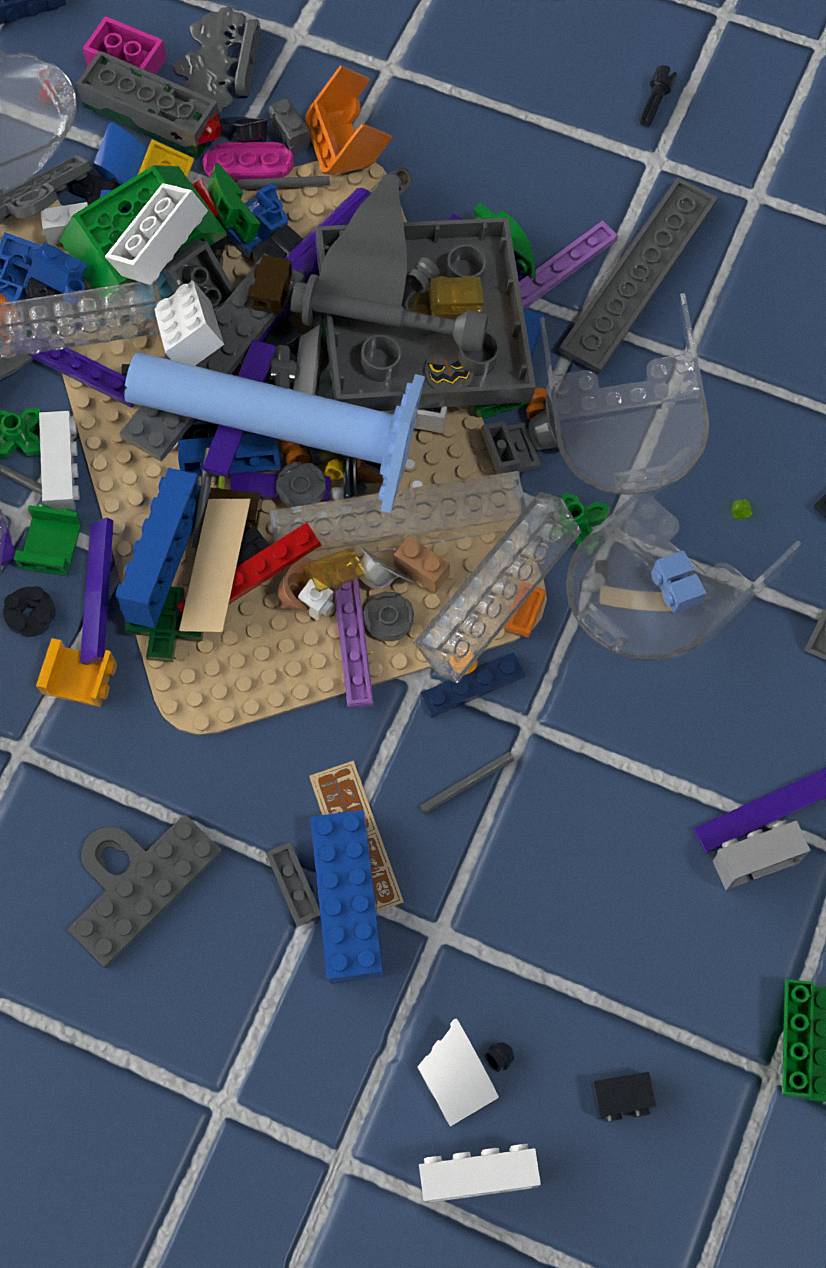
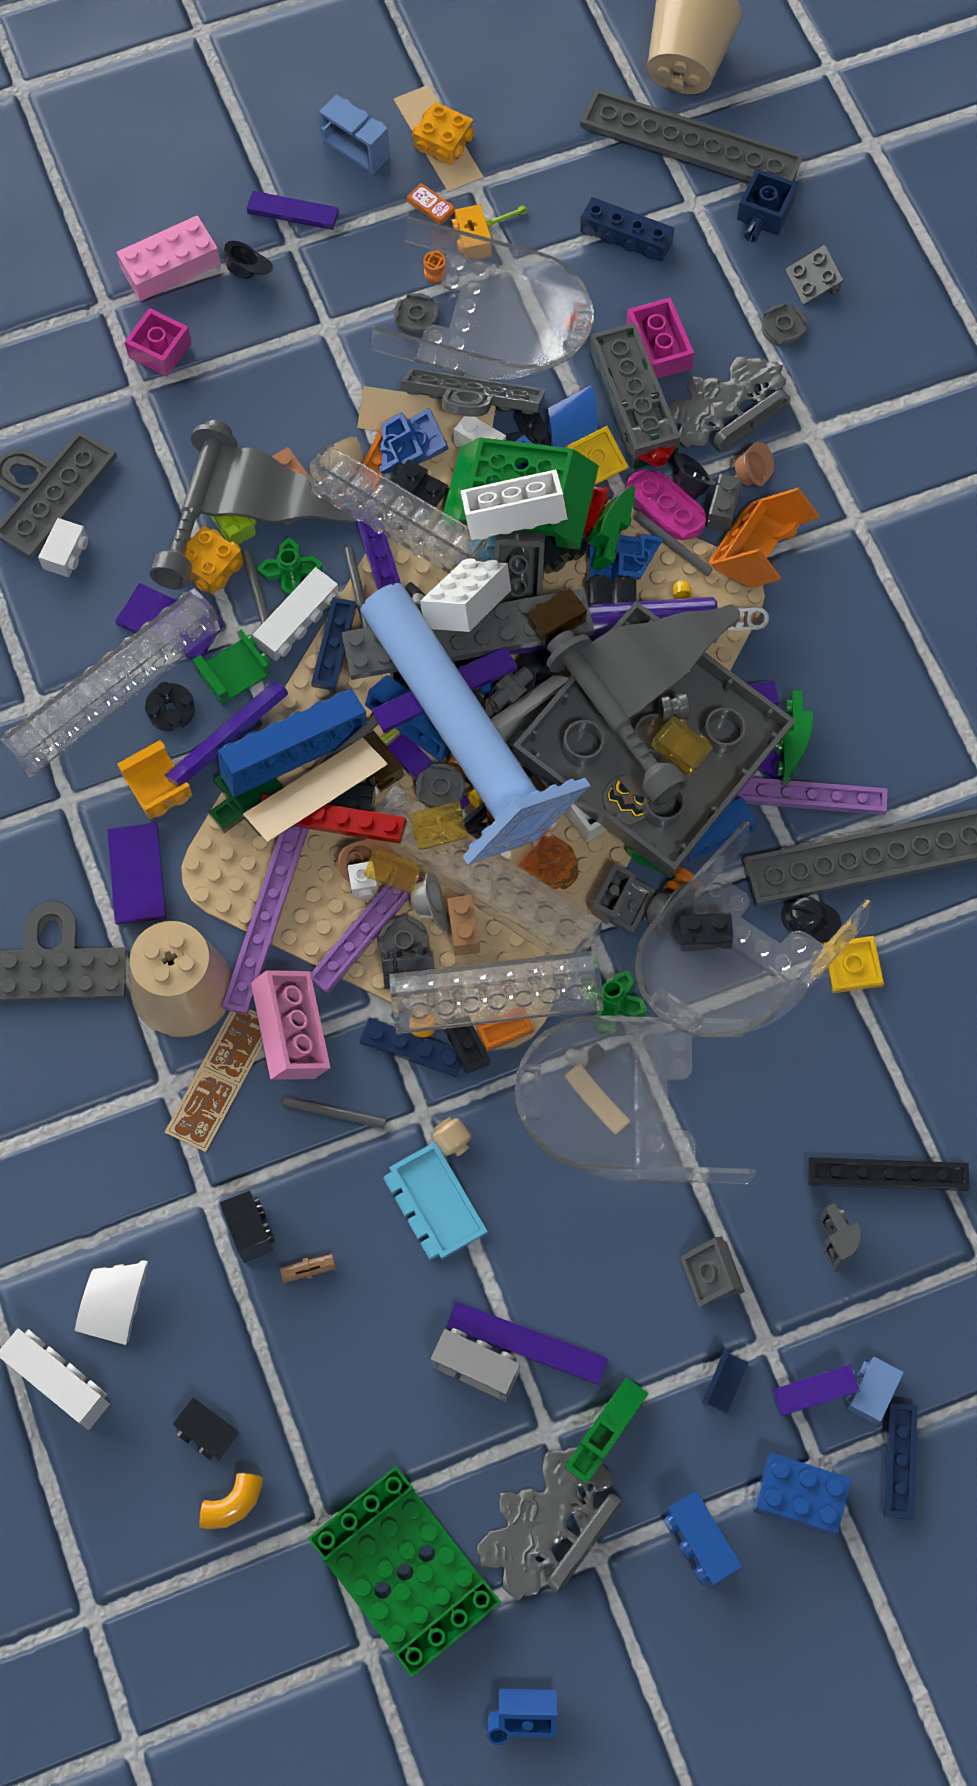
camera: 45 degrees right, 0 degrees up
(58, 269) = (431, 472): blue hinge -> none
(85, 402) = (356, 582): none -> dark grey bar
(111, 455) = (332, 648): none -> dark blue plate
(134, 753) = (136, 873): none -> dark purple tile
(266, 811) = (182, 996): none -> tan cone
(274, 697) = (264, 919): none -> medium lavender plate
(283, 85) = (755, 465): none -> nougat piece
(293, 884) = (144, 1066): dark grey plate -> none
(324, 207) = (682, 590): none -> yellow hinge
(336, 508) = (438, 825): none -> clear yellow panel
(347, 897) = (168, 1108): blue brick -> none
(374, 749) = (290, 1025): none -> bright pink brick
(408, 630) = (400, 962): none -> black brick
(435, 464) = (552, 862): none -> clear orange slope
(499, 920) = (249, 1232): none -> black brick
(500, 1056) = (155, 1318): black plate -> none
(516, 646) = (468, 1048): none -> black plate
(569, 718) = (452, 1136): none -> tan head
(569, 908) = (308, 1268): none -> medium nougat pin
(593, 415) = (705, 931): none -> black brick
(605, 773) = (437, 1201): none -> medium azure hinge
(640, 349) = (811, 917): none -> black piece
(678, 588) = (634, 1114): medium blue piece -> none
(703, 1128) = (234, 1506): none -> light orange cylinder
(711, 353) = (856, 967): none -> yellow tile
(741, 509) = (749, 1107): clear neon green hinge -> none

